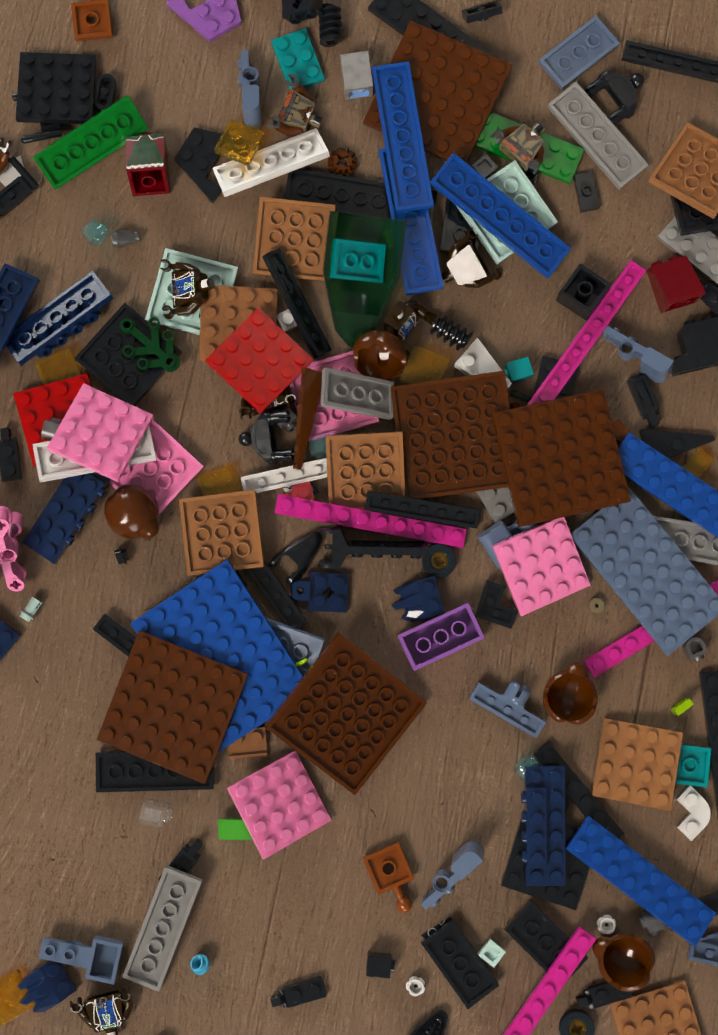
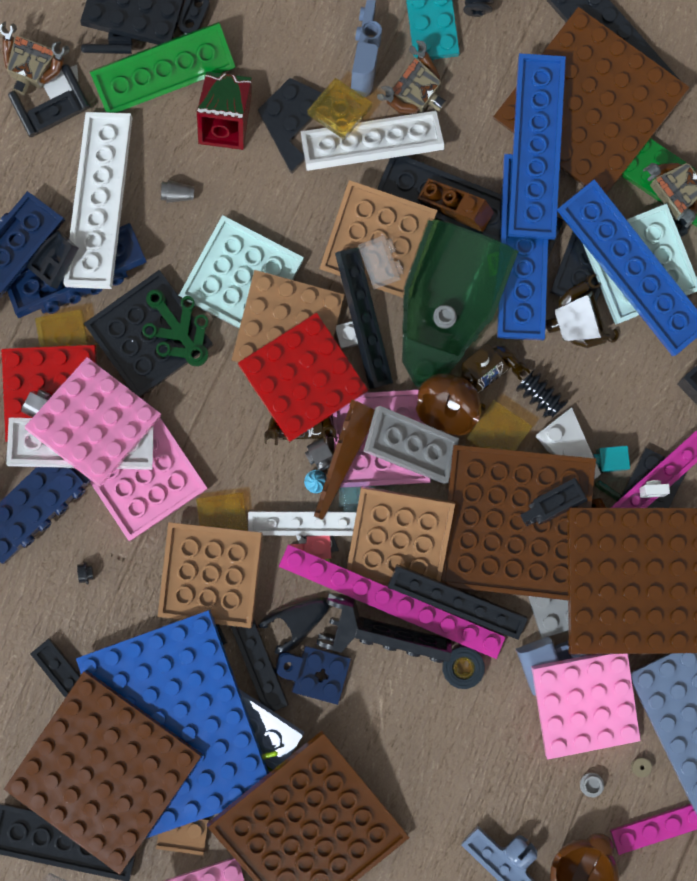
camera: 20 degrees right, 0 degrees up
(38, 311) = (53, 259): none -> black plate
(63, 258) = (99, 199): none -> white plate
(95, 232) = (143, 177): clear light blue plate -> none
(132, 512) = (109, 525): reddish brown piece -> none
(188, 288) = (238, 271): dark brown torso -> none
(263, 437) = (287, 471): black connector -> none
(287, 440) = (315, 481): none -> medium azure plate
(299, 255) = (380, 261): none -> clear brick
(341, 169) = (455, 168): reddish brown gear -> none
(350, 197) = (457, 204): none -> reddish brown slope
(356, 75) = (498, 58): flat silver piece -> none
(357, 260) = (448, 284): teal plate -> none
(360, 289) = (444, 316): none -> light grey plate
(419, 599) = (429, 710): dark blue plate -> none
(440, 636) = (444, 762): medium lavender brick -> none
(480, 412) = (554, 503): none -> black hinge
(482, 12) = (667, 14): black plate -> none
(485, 166) = (627, 202): flat silver plate -> none
(490, 608) = (512, 739): black plate -> none
(556, 384) = (654, 489): none -> white plate
(560, 628) = (591, 784): none -> light grey plate

